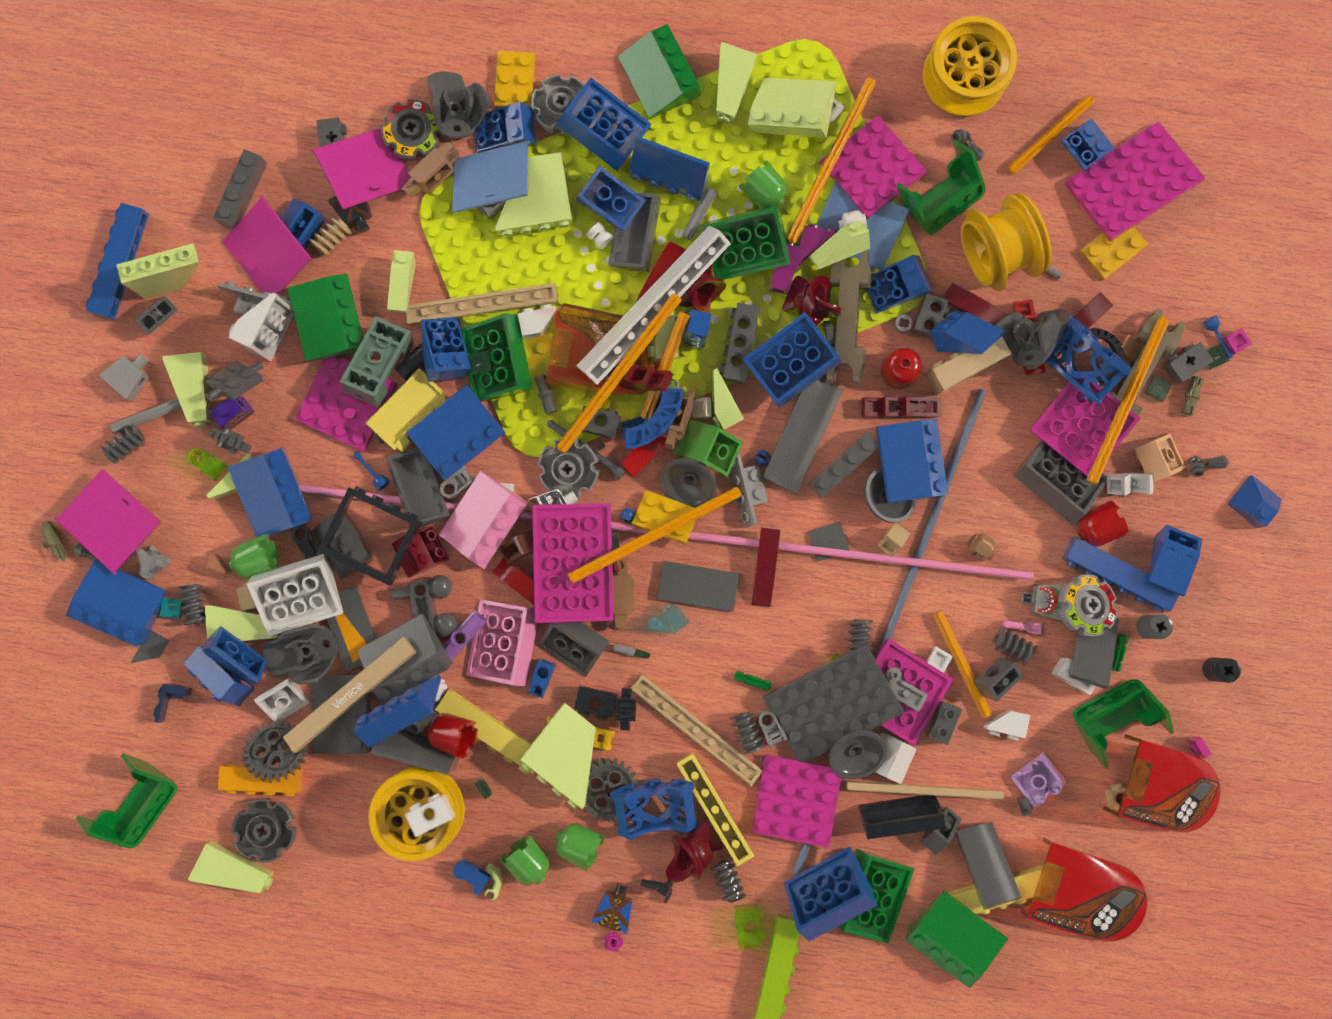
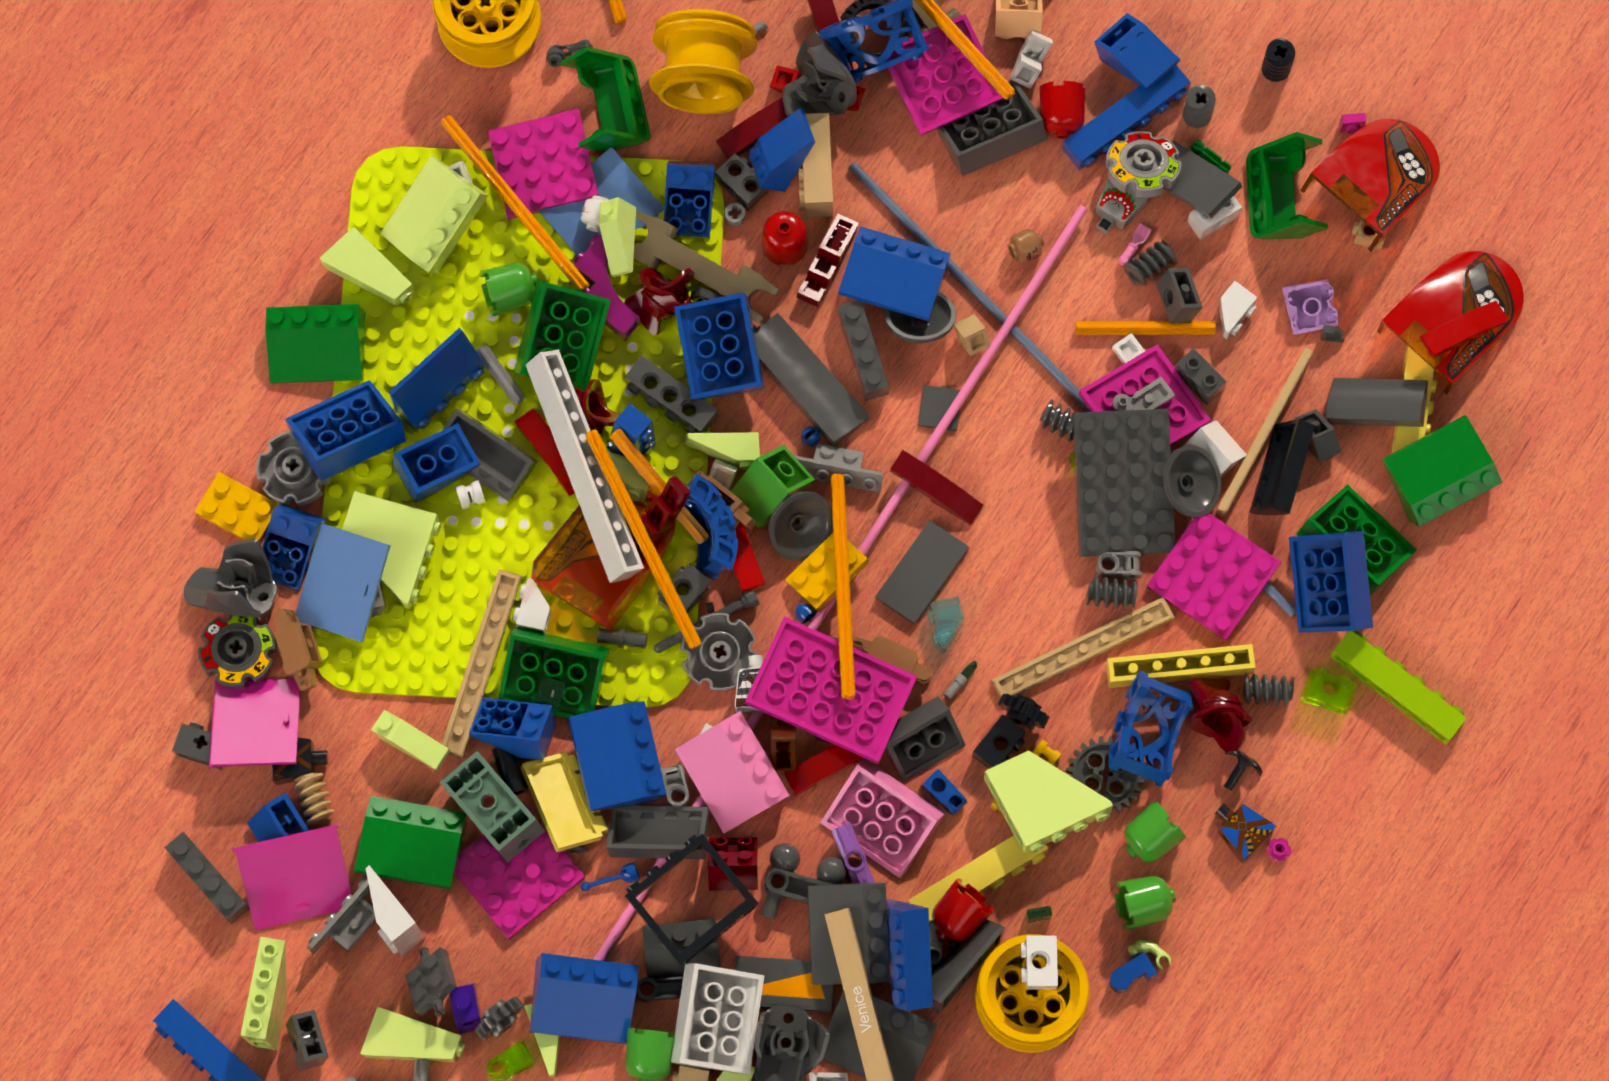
camera: 60 degrees left, 10 degrees down
(752, 680) = (1057, 562): green axle -> none
(1074, 909) = (1463, 328): none -> red slope

